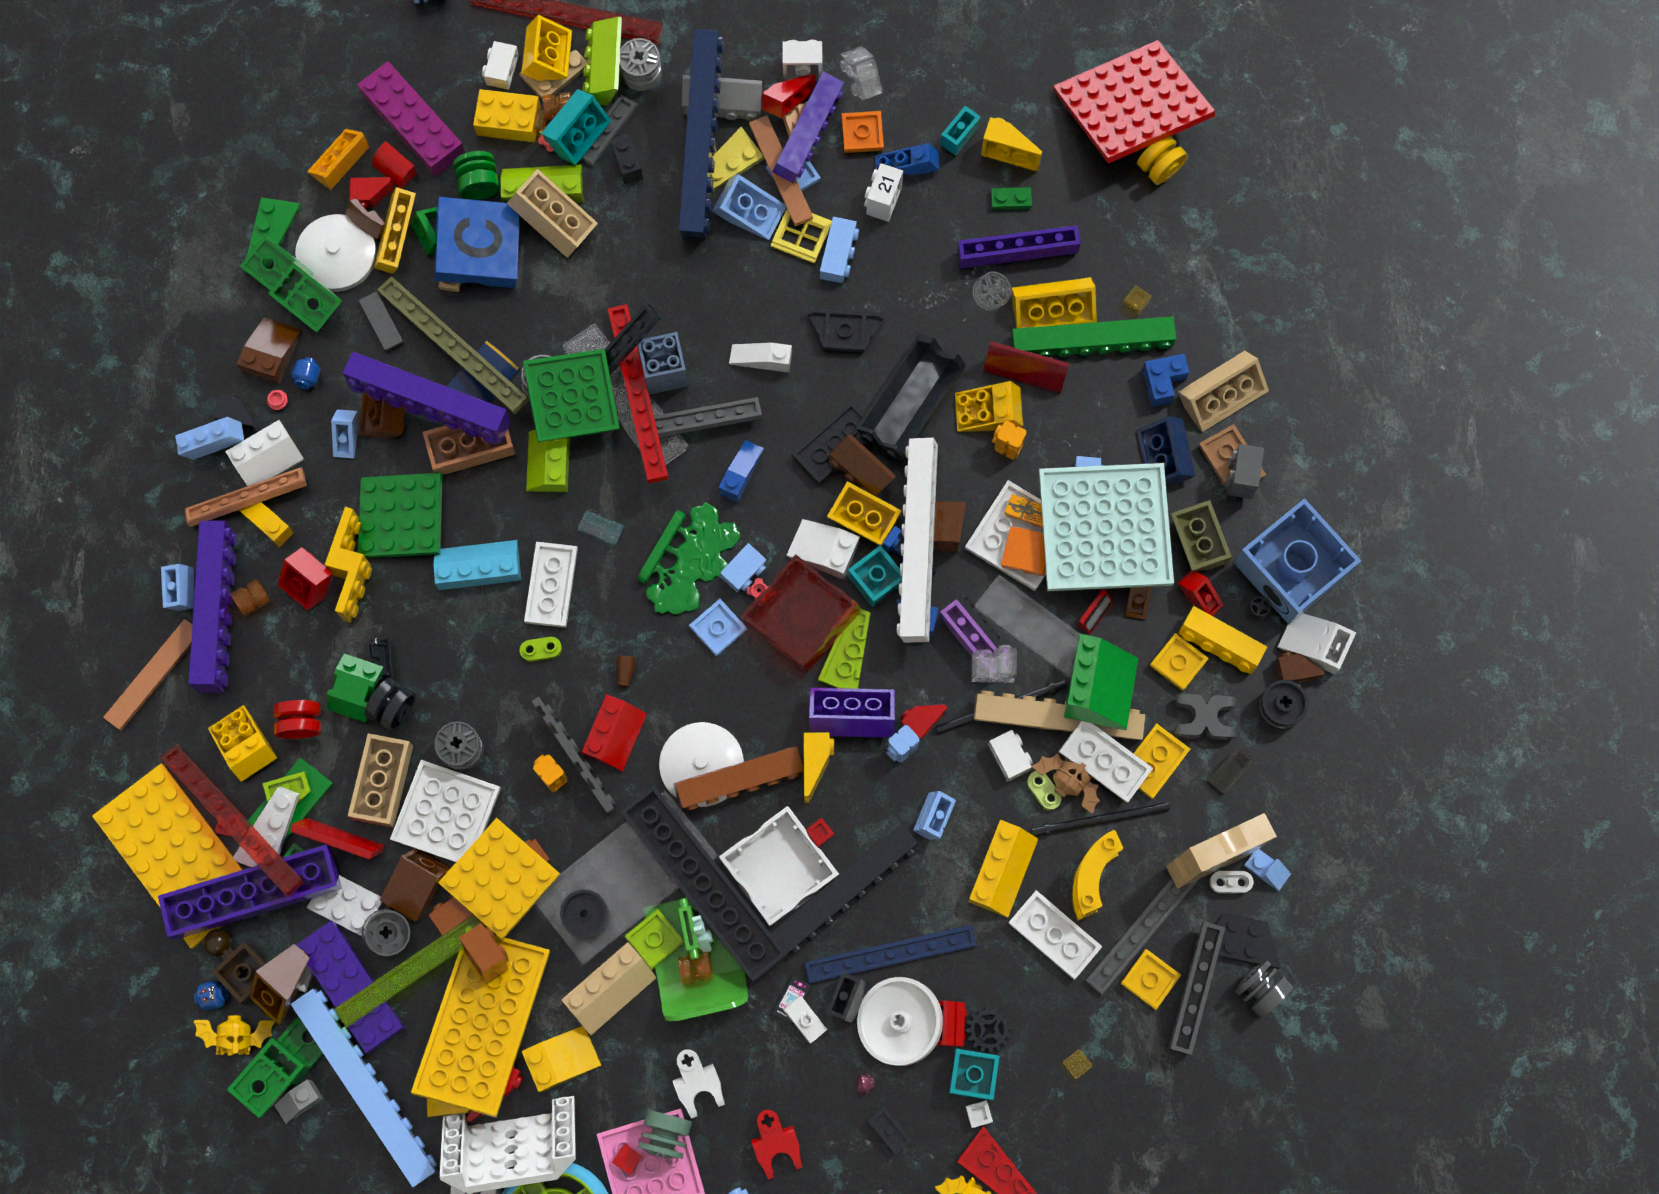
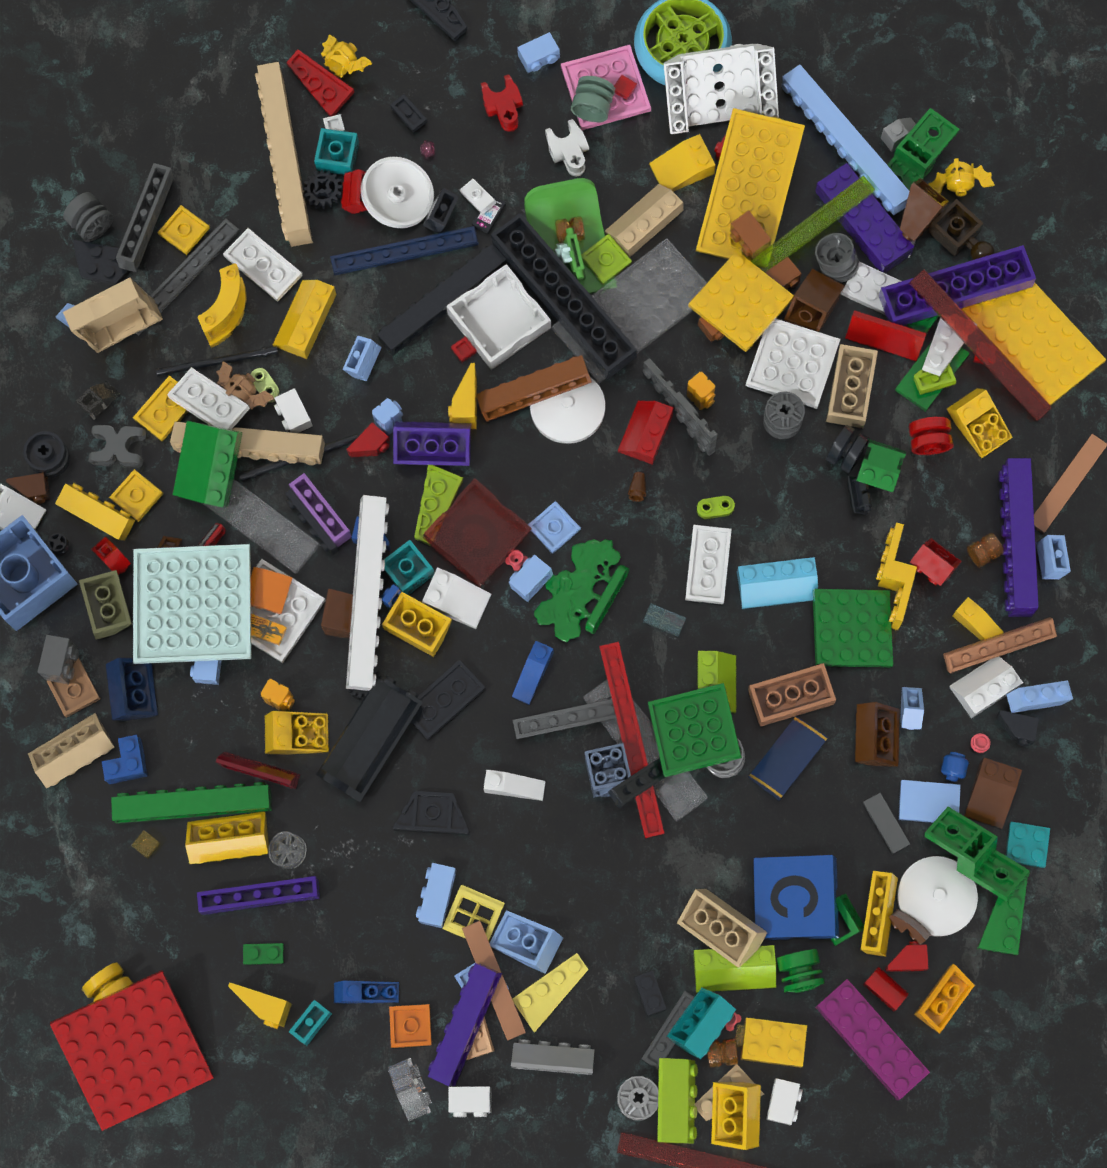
camera: 175 degrees left, 0 degrees up
(211, 995) = (984, 211): blue head -> none
(240, 301) = (1028, 844): none -> teal plate
(335, 342) = (926, 800): none -> light blue tile
(426, 398) = (832, 721): dark purple brick -> none
(453, 345) = (814, 791): olive plate -> none
(574, 907) = (665, 270): black wheel -> none
(700, 133) = (571, 1005): dark blue brick -> none
(786, 95) = (487, 1059): red slope -> none
(860, 465) = (420, 668): reddish brown slope -> none
(883, 192) = (389, 952): white brick -> none
(995, 666) = (301, 475): clear brick -> none
(1036, 1071) = (283, 154): none -> tan brick
(1077, 1064) = (250, 165): clear yellow tile -> none

